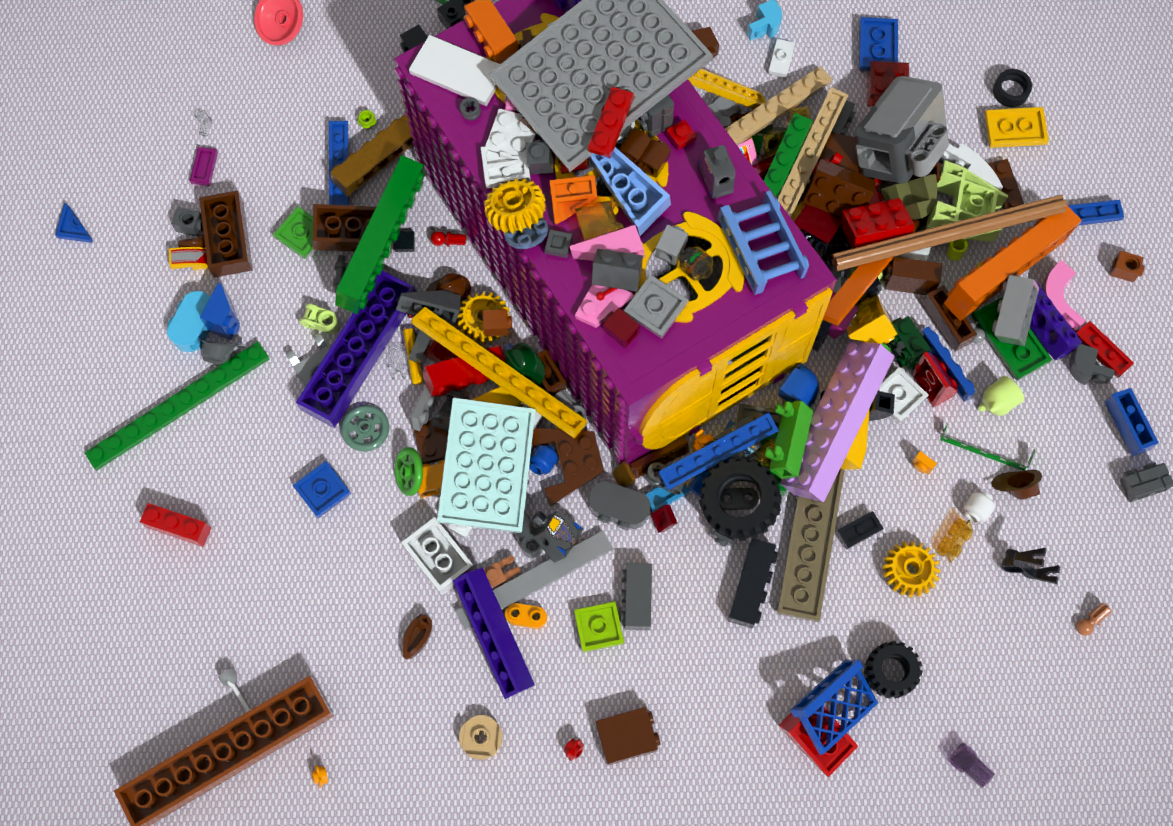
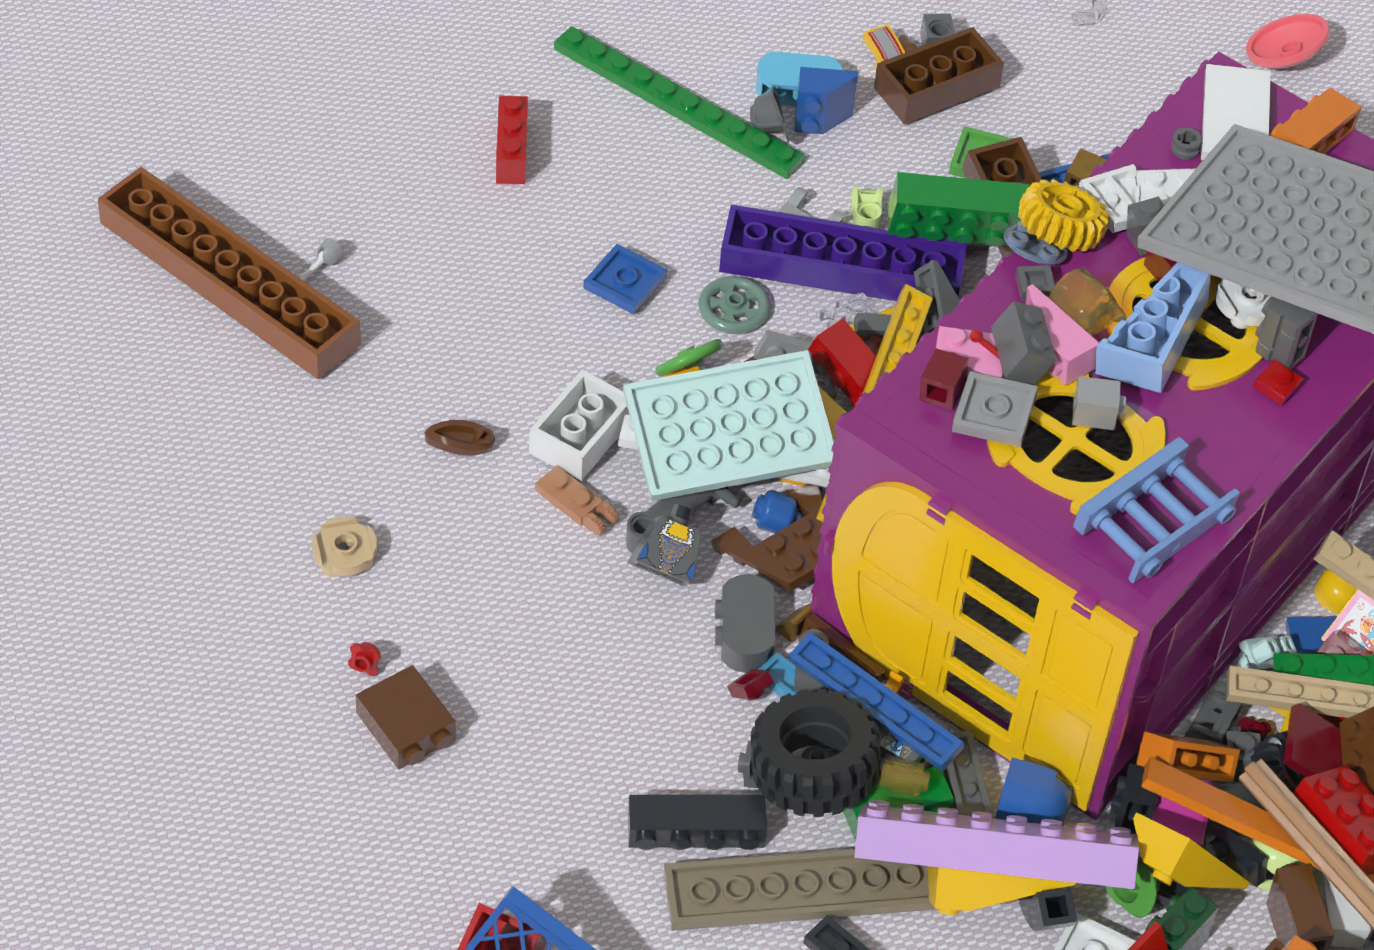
camera: 65 degrees right, 20 degrees down
(203, 166) = (1027, 33): magenta tile -> none
(319, 775) = (231, 381): light orange plate -> none
(493, 633) = (495, 511): dark purple brick -> none
(525, 616) = (538, 554): light orange plate -> none
(546, 574) = (596, 555): light grey tile -> none
(571, 194) = (1119, 273): orange wing -> none
(599, 627) = (554, 645): lime plate -> none
(611, 122) = (1226, 254): red plate -> none
(637, 596) = (618, 680): dark grey brick -> none
(645, 153) = (1222, 340): reddish brown brick -> none
(696, 263) = (1082, 437): clear smoke head -> none
(715, 167) = (1248, 421): dark grey torso -> none
(790, 440) = (936, 788): bright green brick -> none

